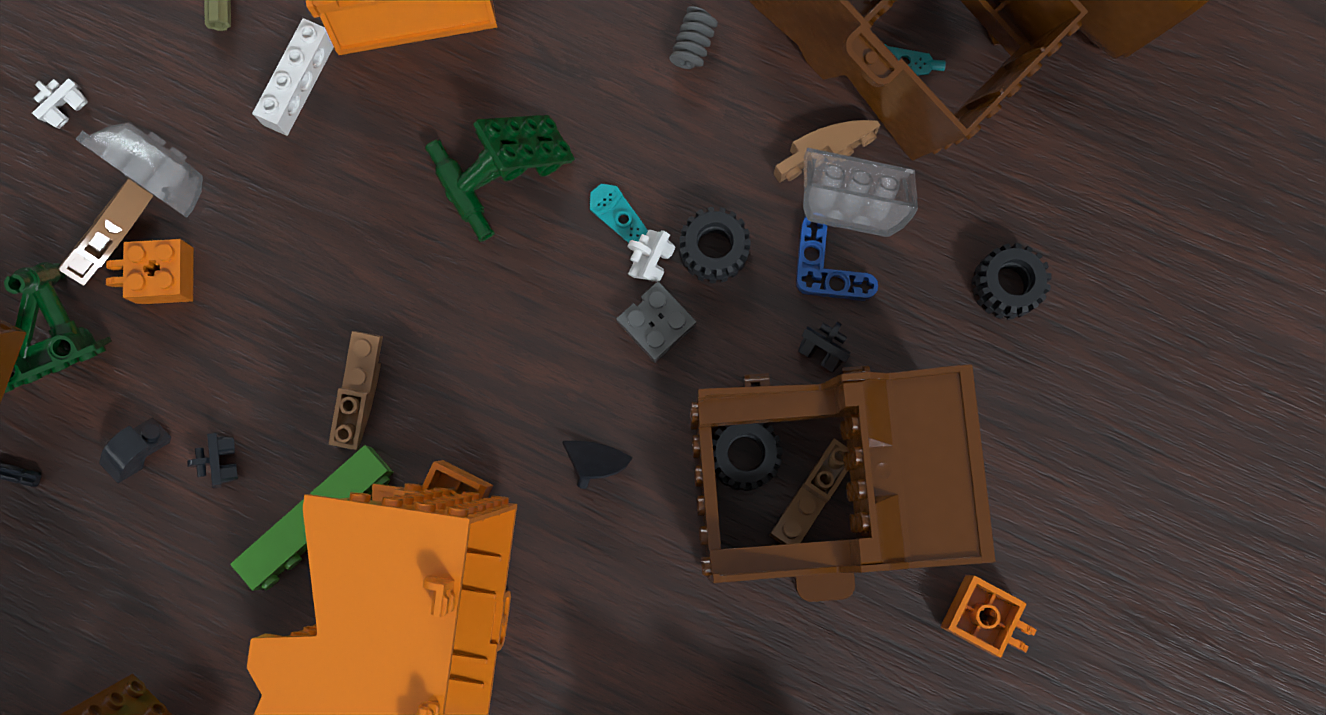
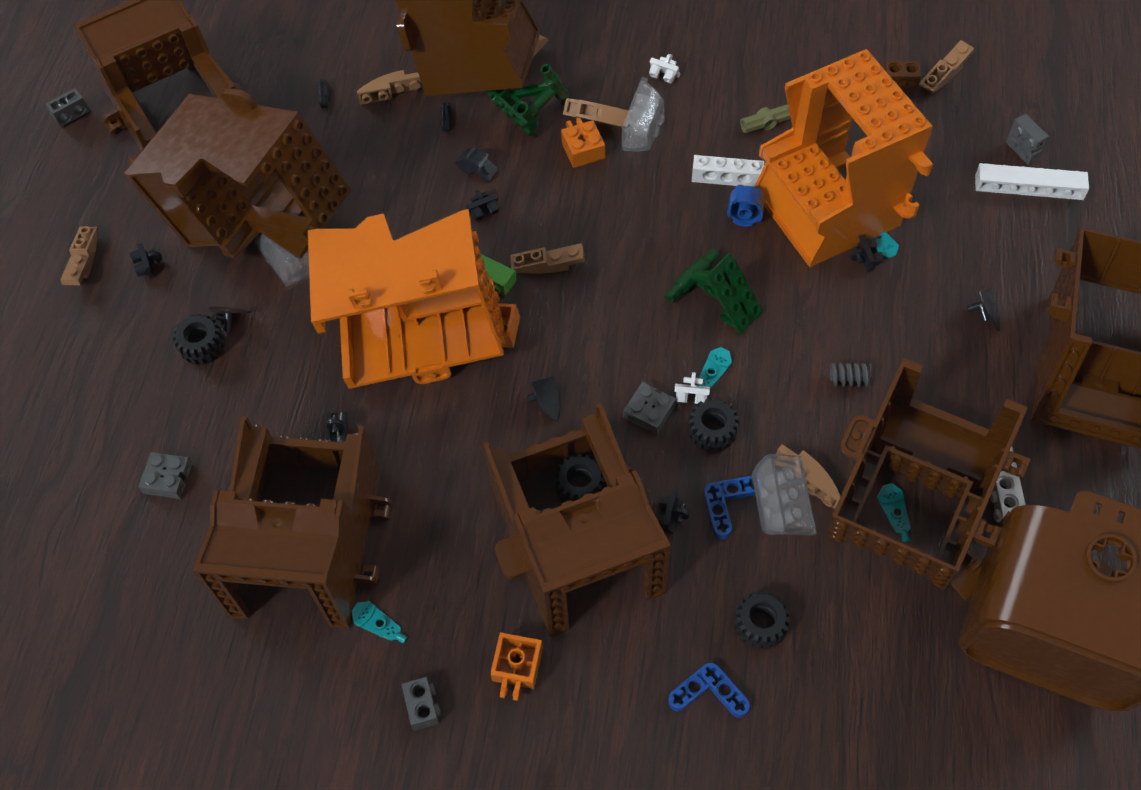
camera: 75 degrees right, 20 degrees down
(369, 72) = (746, 205): none -> blue brick
(1069, 380) = (705, 684): none -> blue beam

